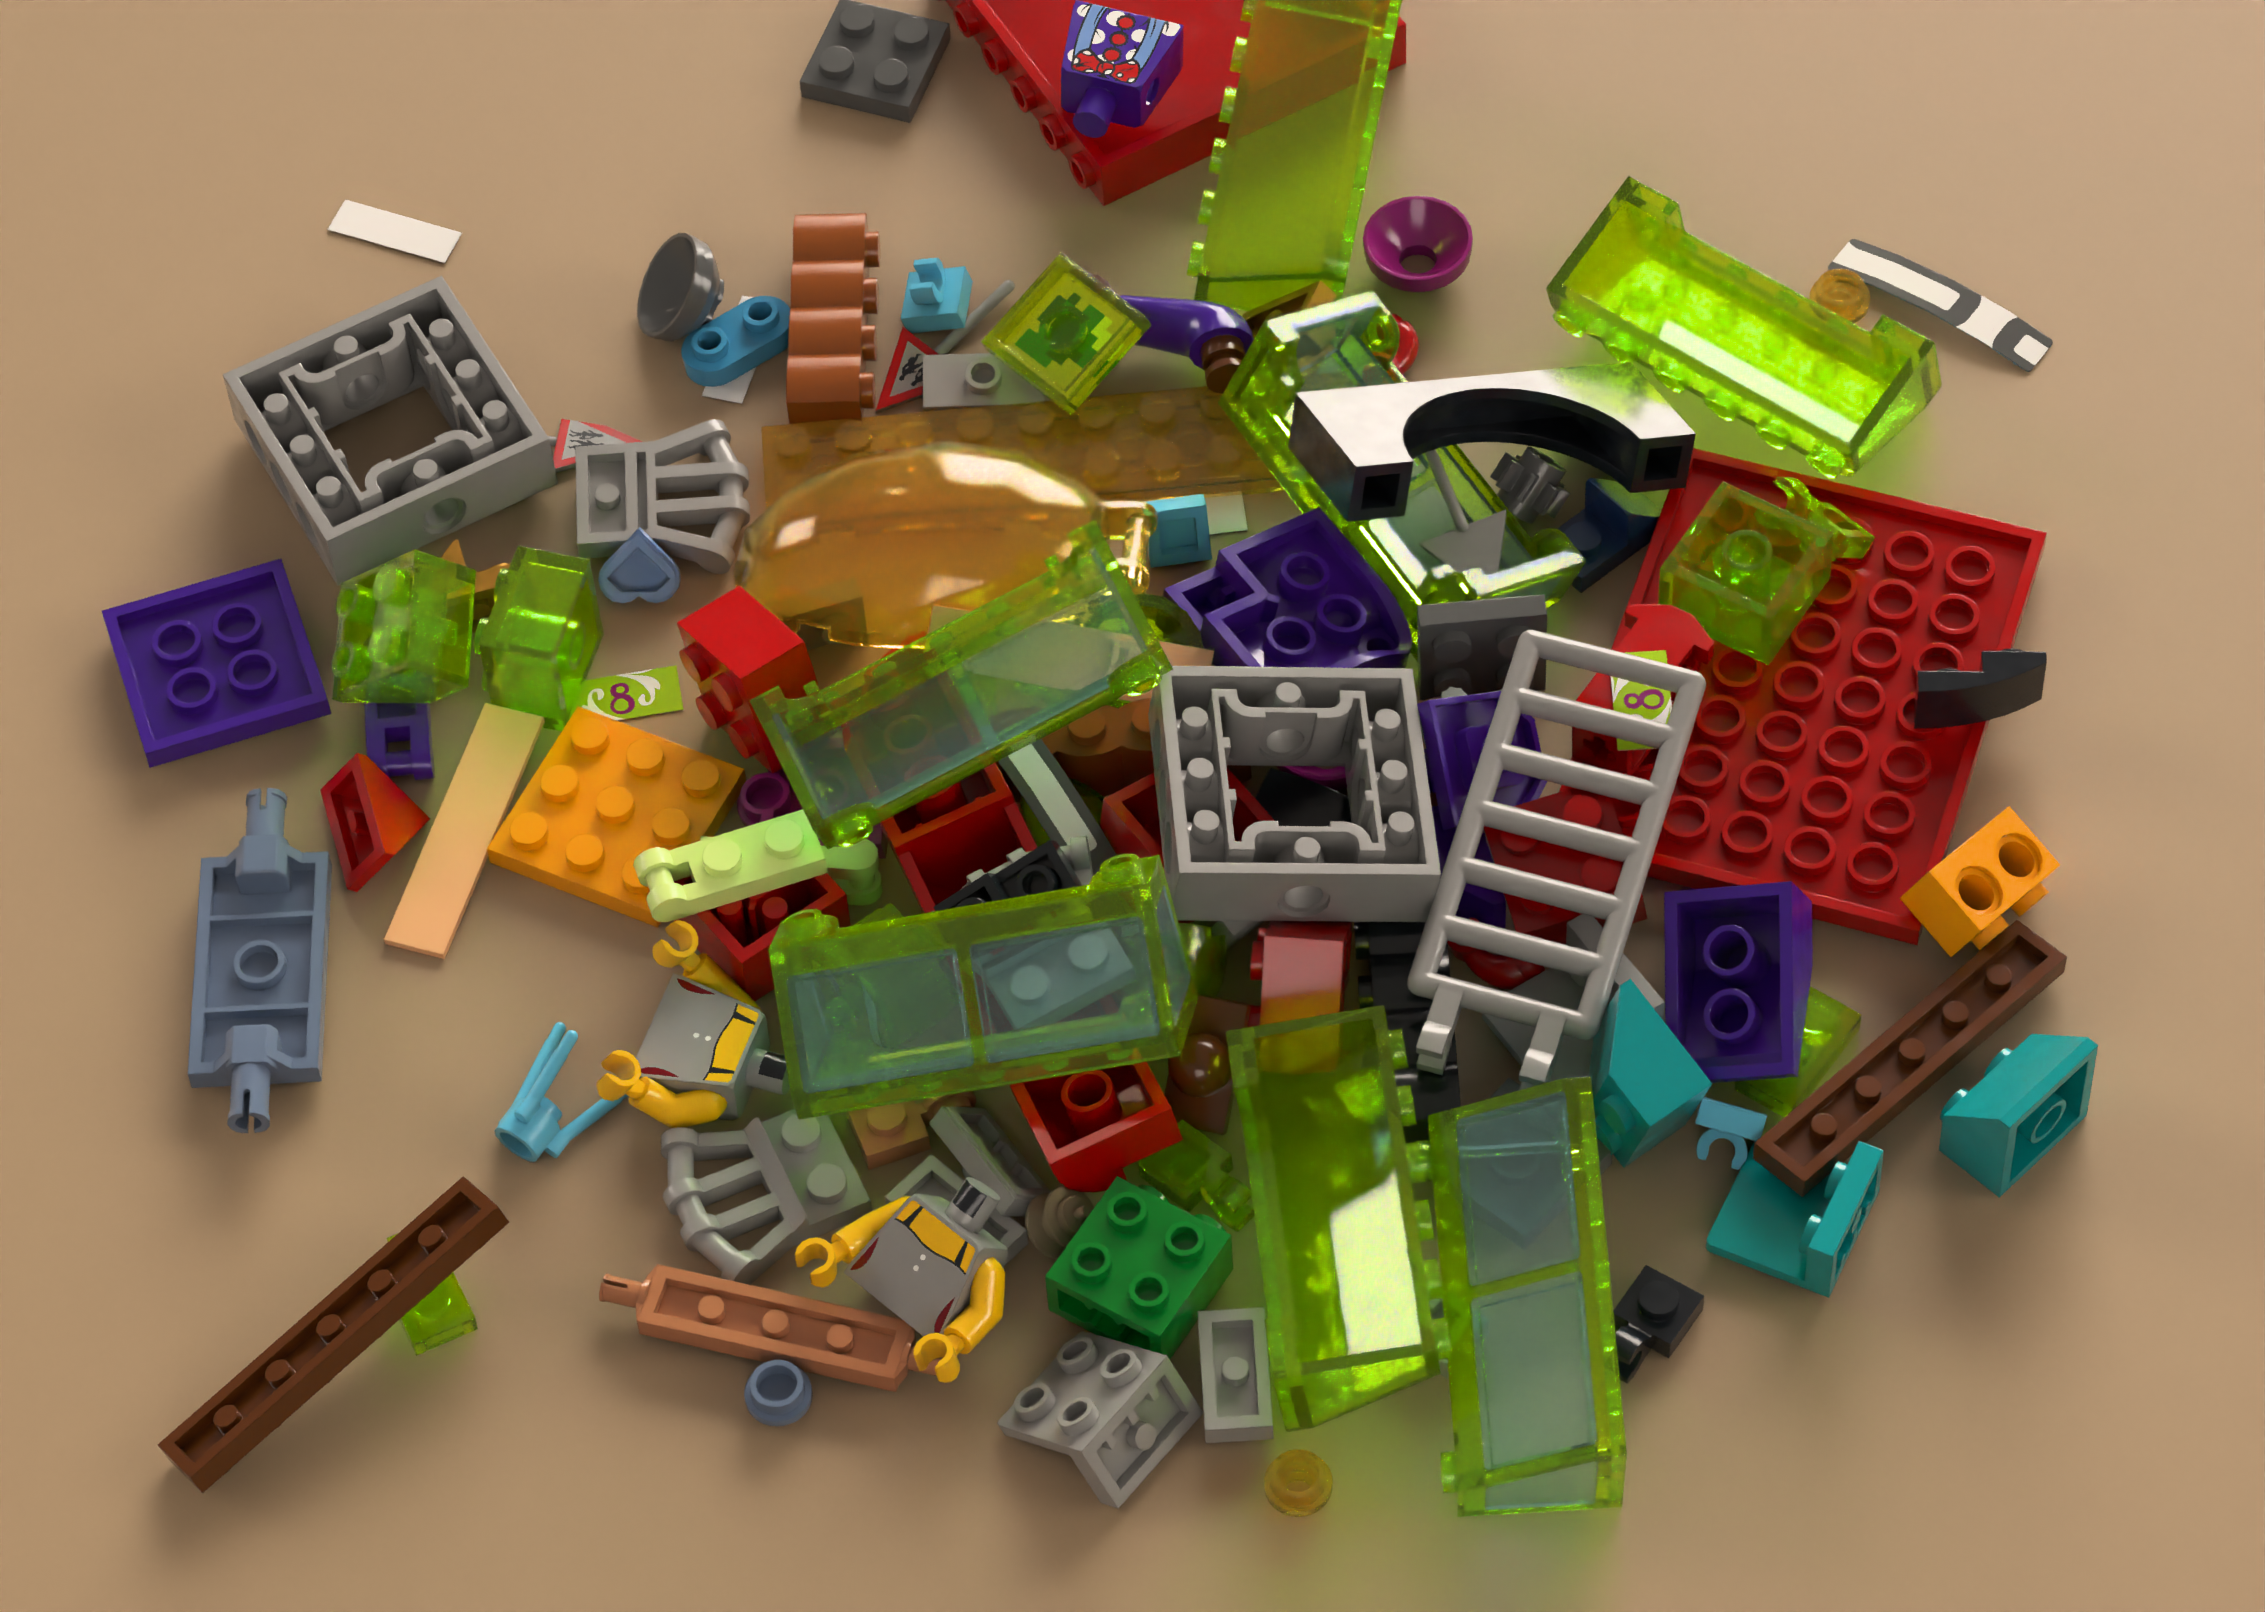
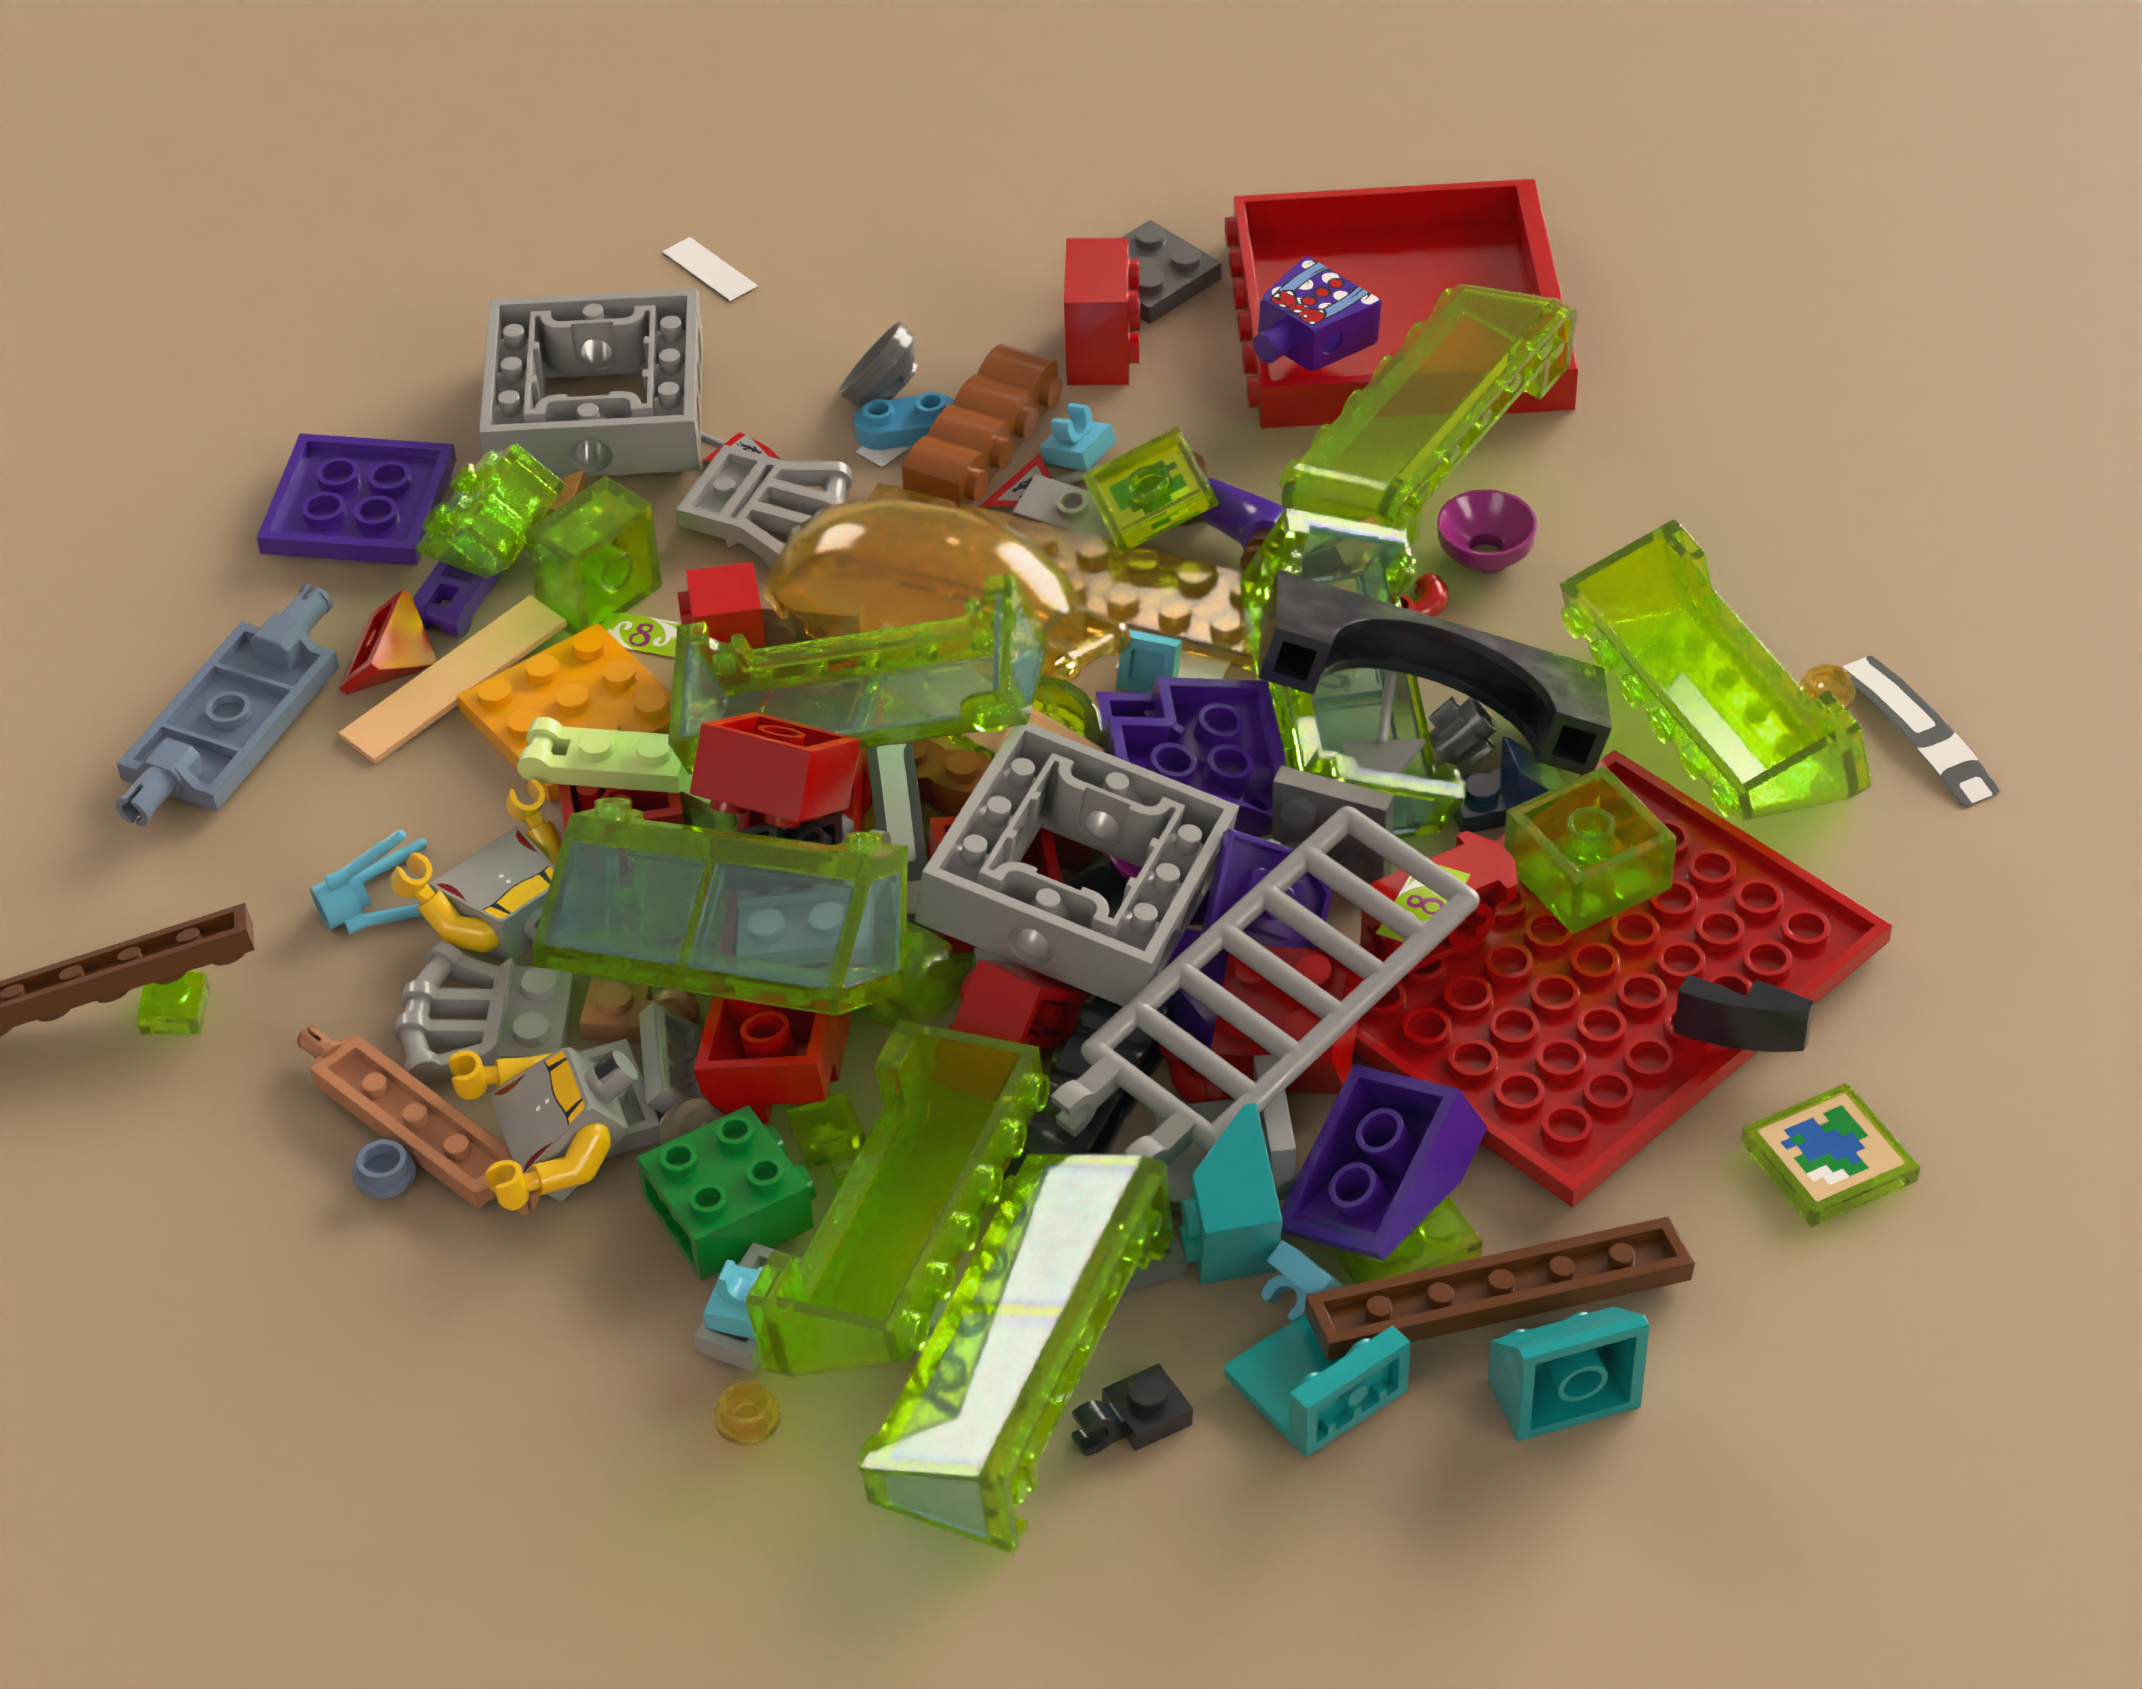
camera: 25 degrees right, 10 degrees down
(639, 570) = (710, 543): medium blue tile -> none
(876, 137) = (1101, 311): none -> red brick
(952, 818) = (774, 768): none -> red brick
(1107, 1410) = (626, 1294): light grey bracket -> none
(1201, 1078) = (866, 1043): reddish brown tile -> none
(1237, 1375) = (727, 1305): none -> medium azure tile
(1849, 538) = (1694, 848): clear neon green plate -> none
(1980, 882) = (1646, 1159): light orange brick -> none
(2114, 792) = (1830, 1154): none -> tile

